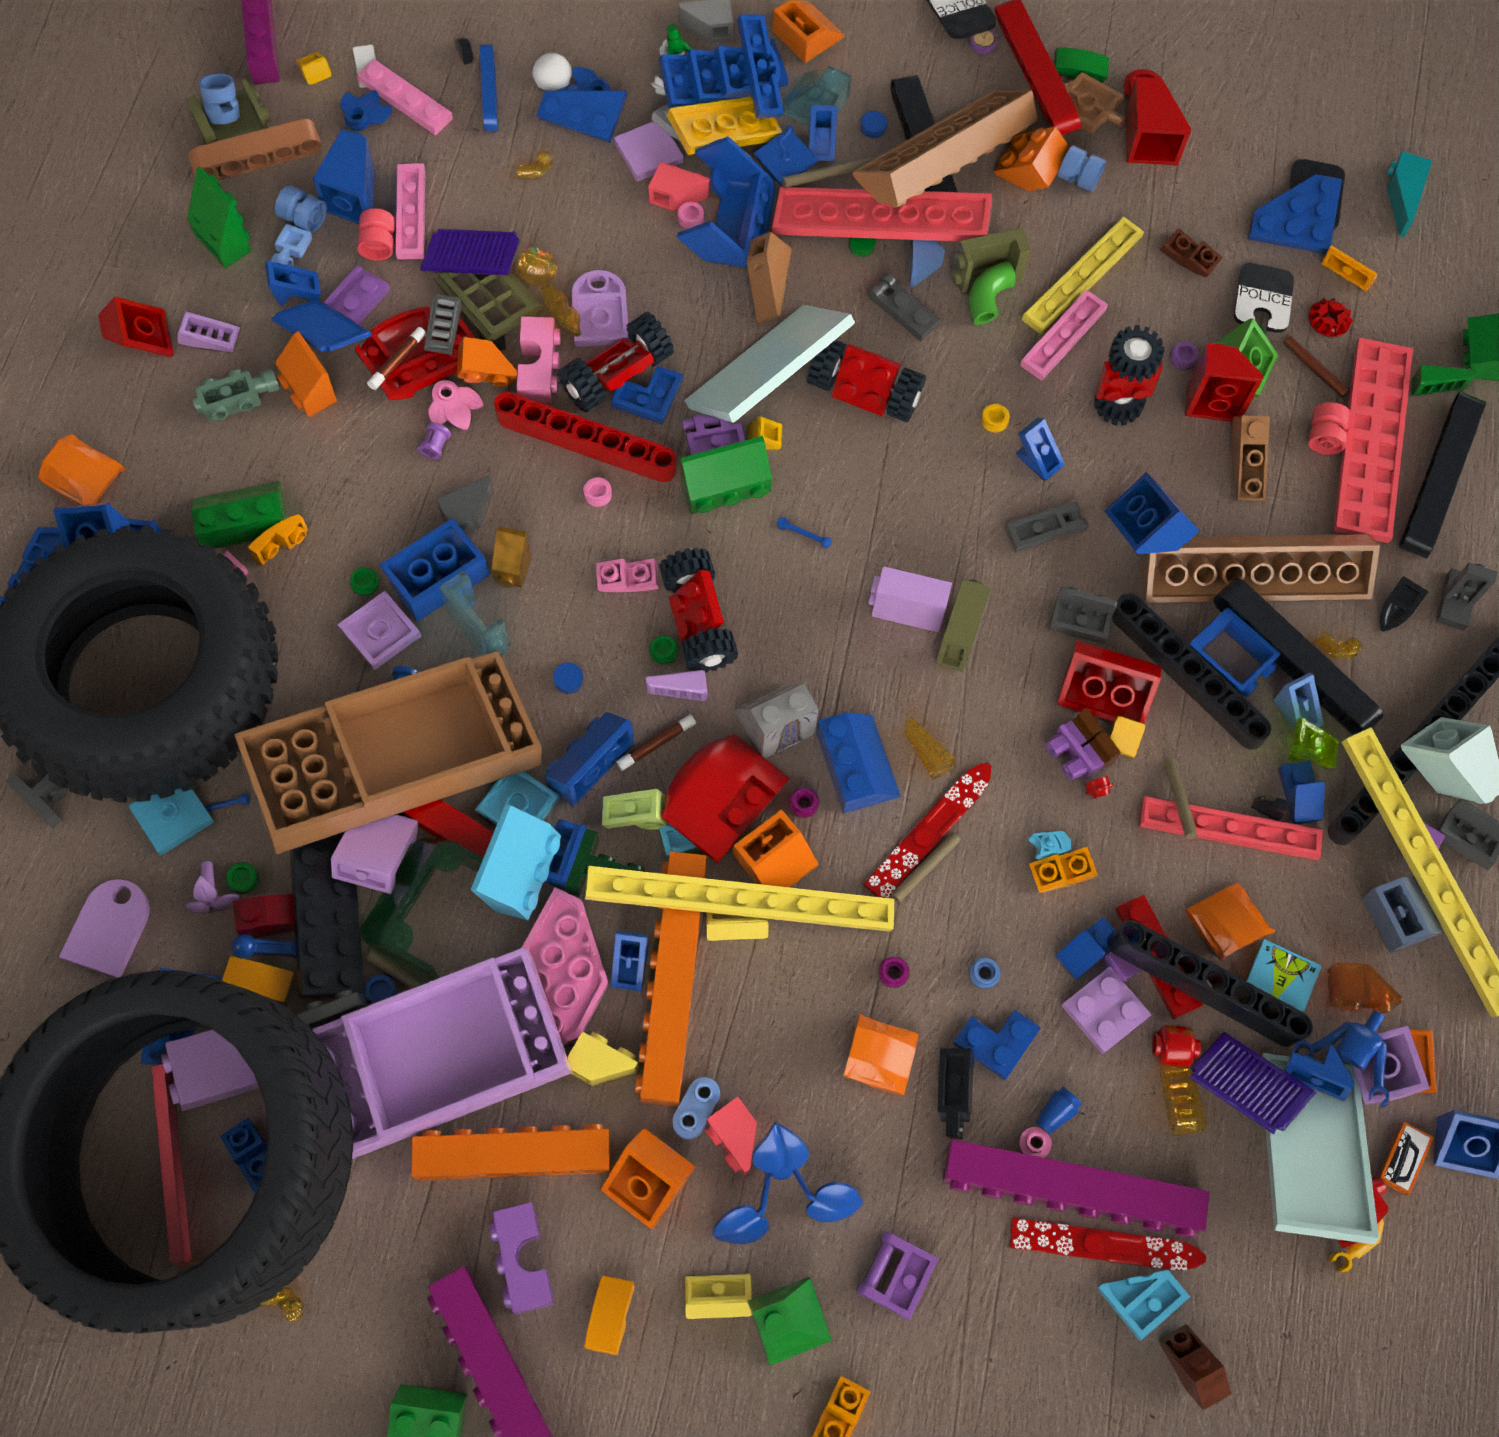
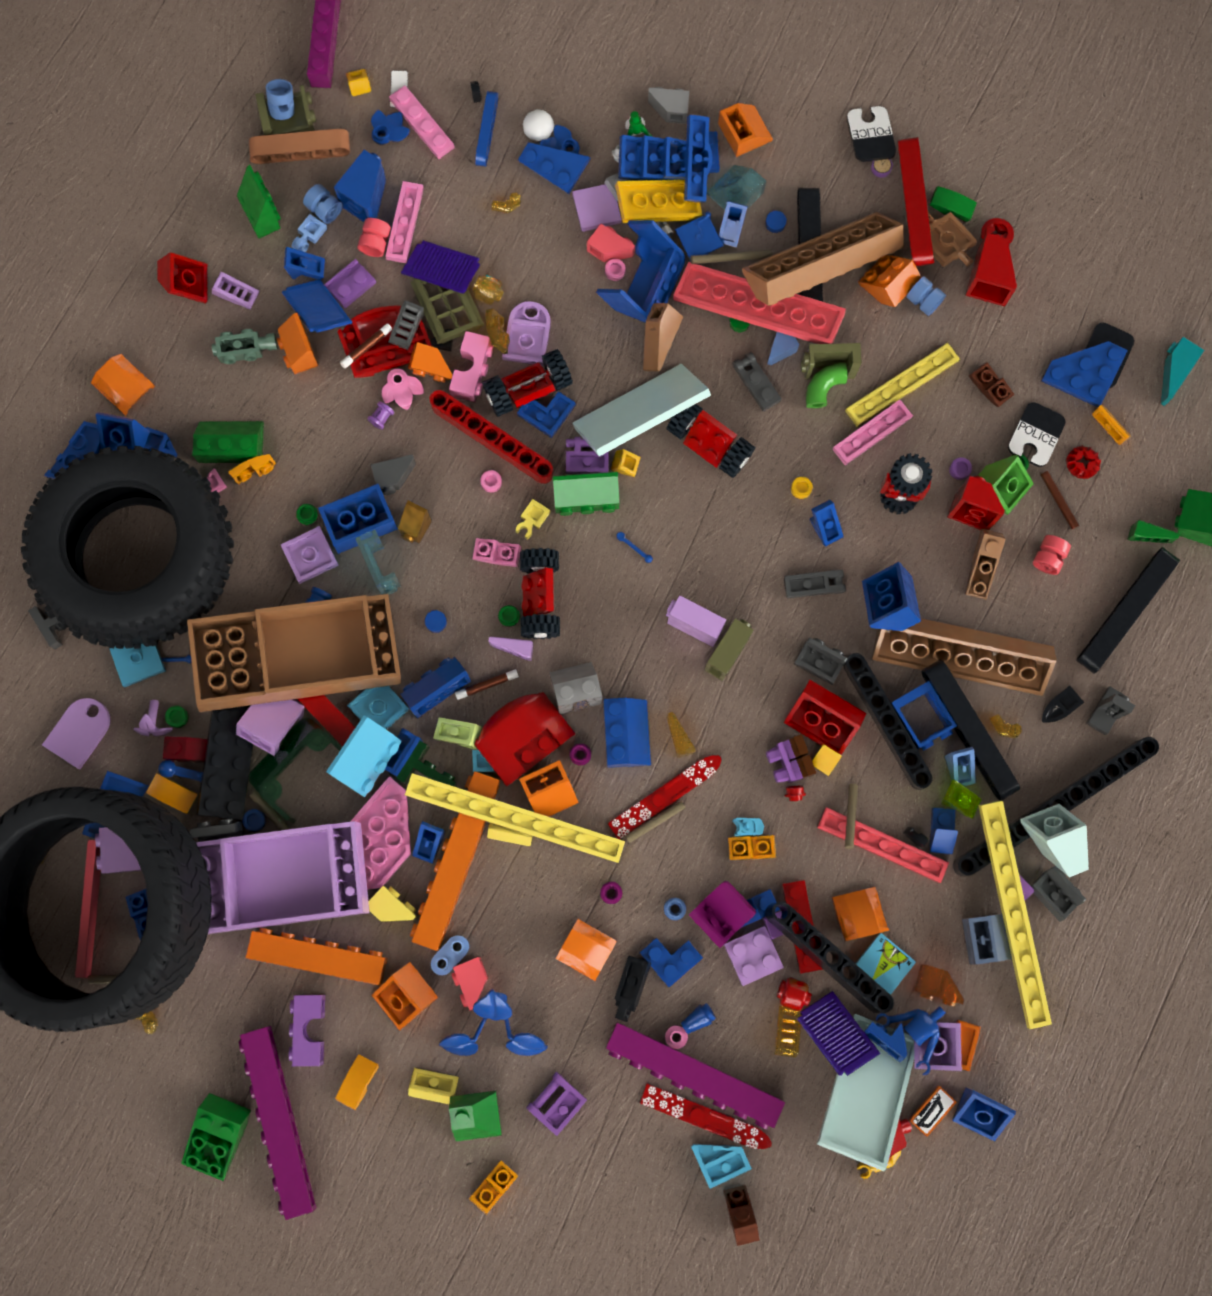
camera: 15 degrees right, 10 degrees up
(663, 521) = (533, 515): none -> light yellow plate
(1052, 959) = (722, 913): none -> magenta bracket
(1374, 440) = (1084, 570): coral plate -> none

